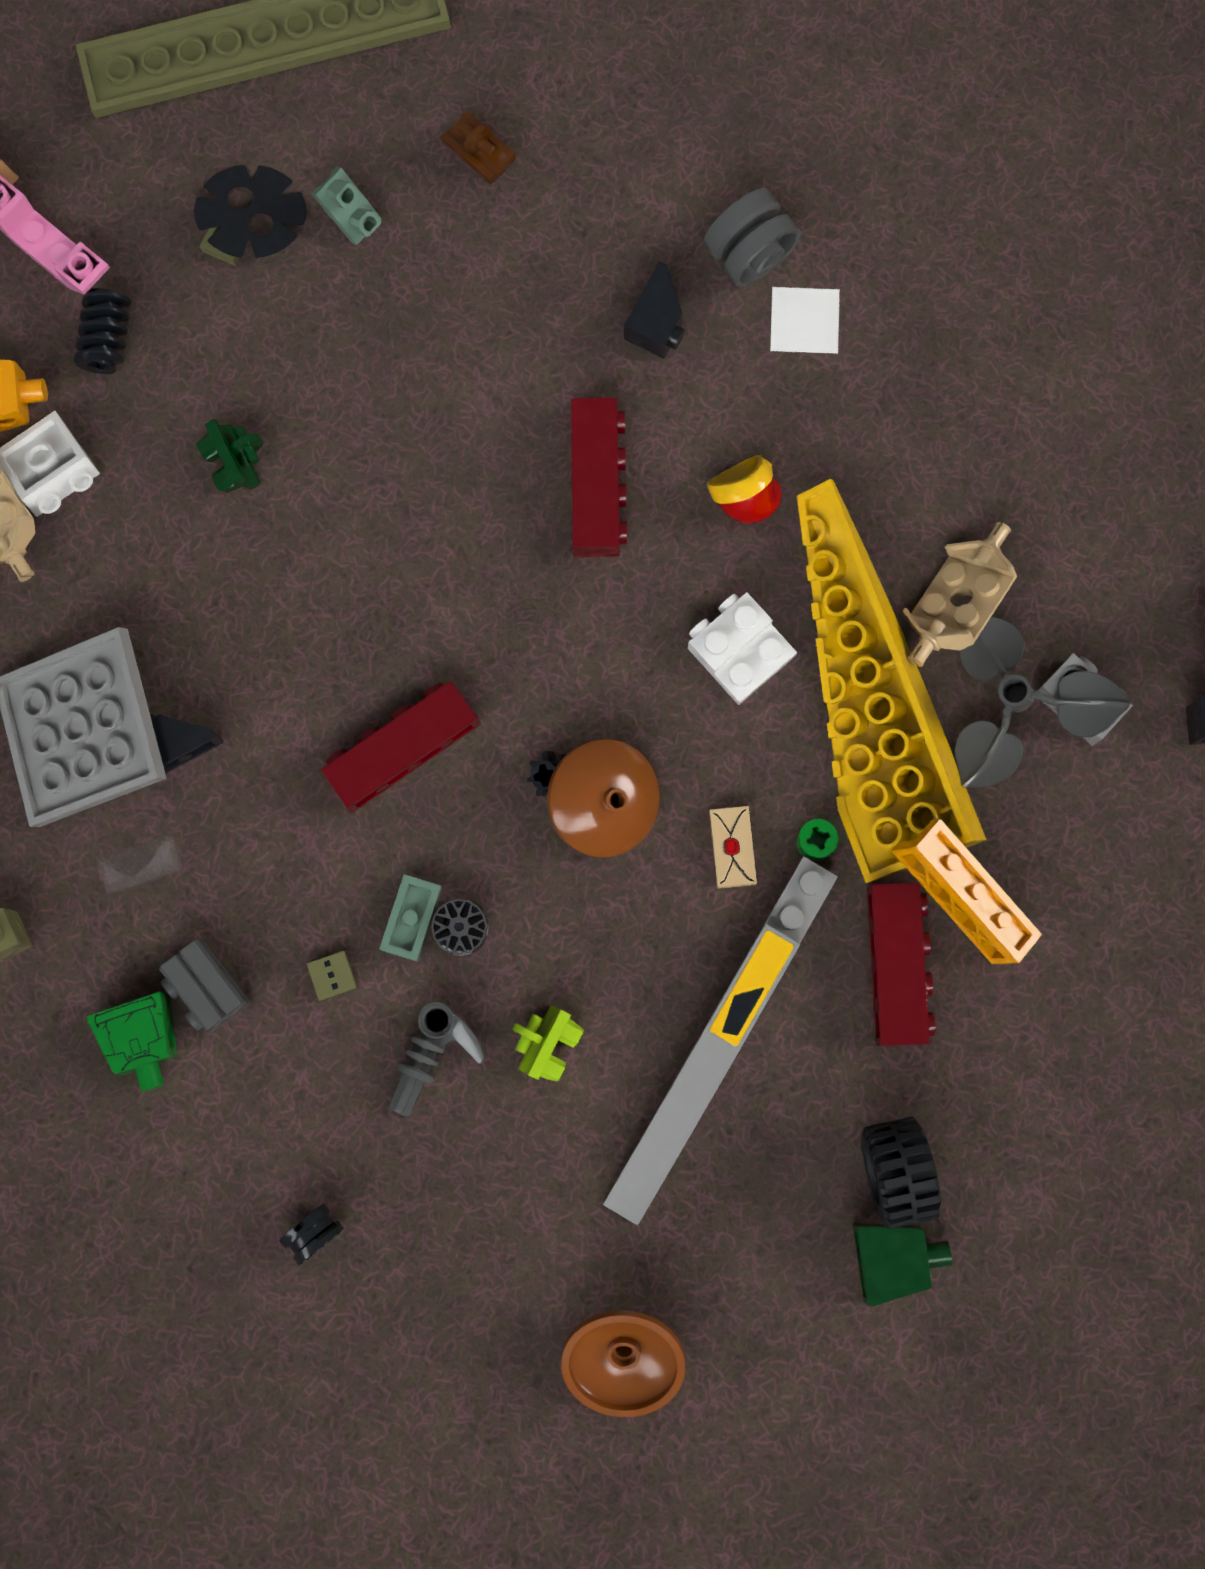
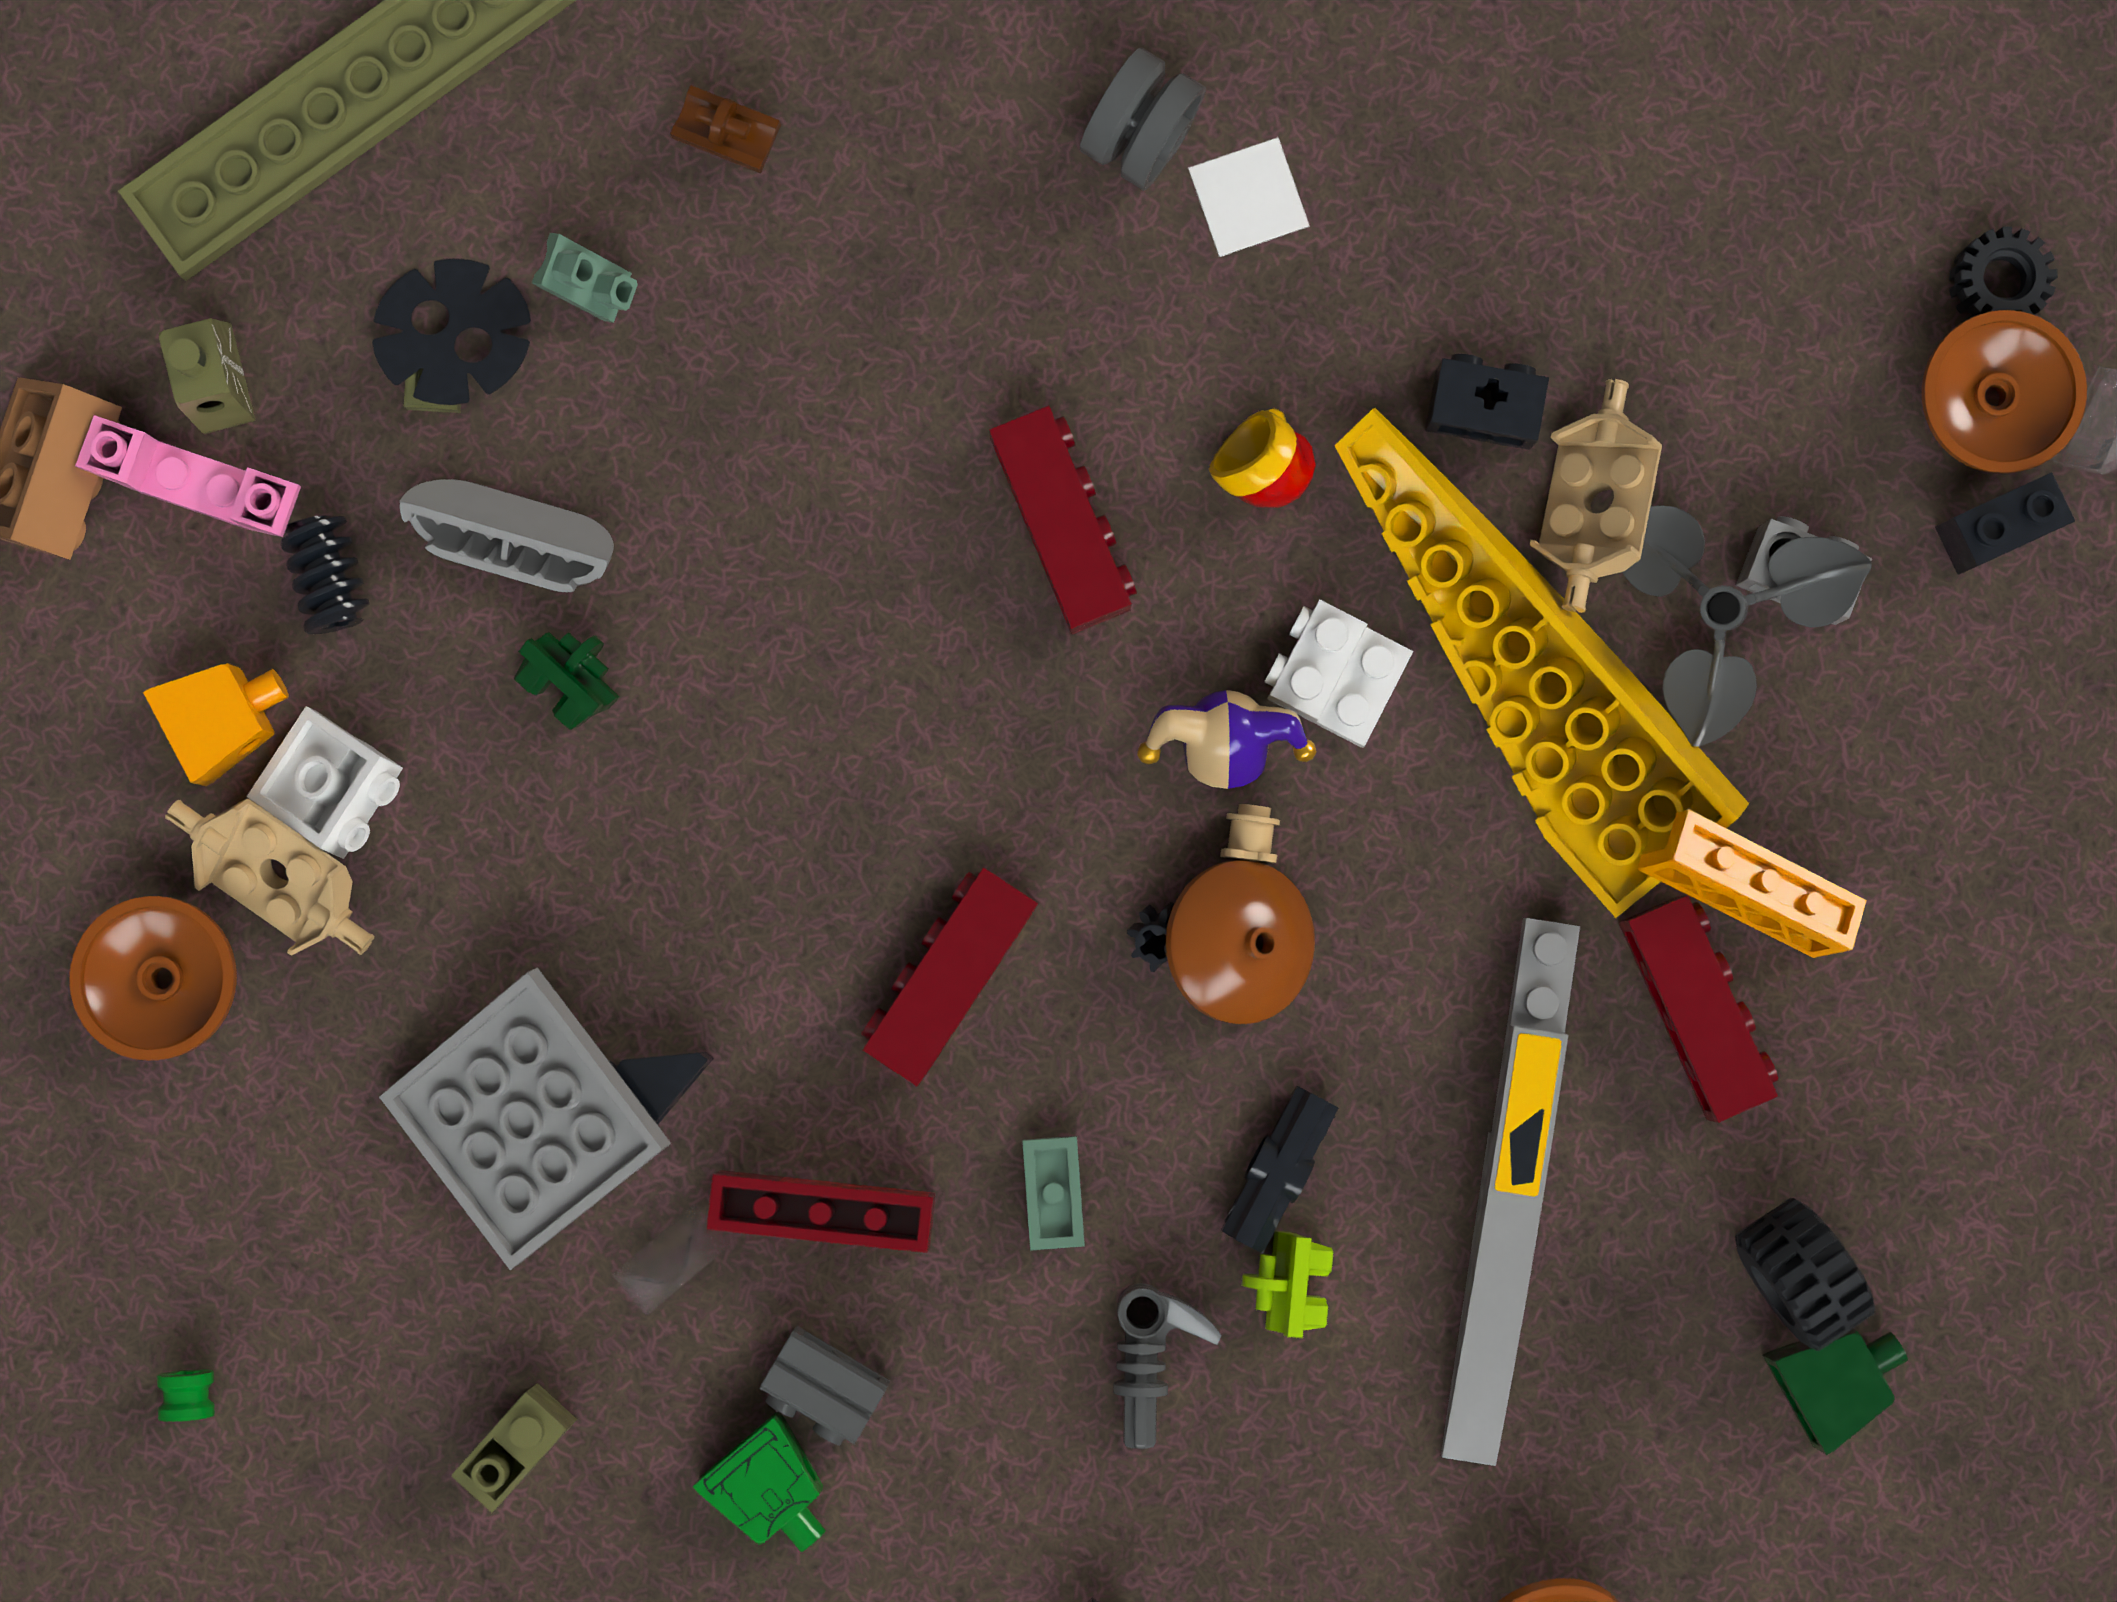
camera: 25 degrees left, 5 degrees up
(83, 169) = (206, 368): none -> olive torso
(230, 350) = (508, 534): none -> light grey brick
(249, 866) = (821, 1211): none -> dark red brick
(332, 976) = (981, 1305): olive tile -> none
(460, 927) = (1122, 1180): wheel -> none
(569, 961) = (1279, 1169): none -> black piece
(640, 730) = (1251, 834): none -> tan brick
(648, 659) = (1225, 737): none -> piece
(656, 316) = (1055, 269): black slope -> none
(732, 847) = (1428, 938): tan tile -> none
(810, 843) = (1525, 893): green wheel -> none
(918, 526) = (1461, 413): none -> black brick

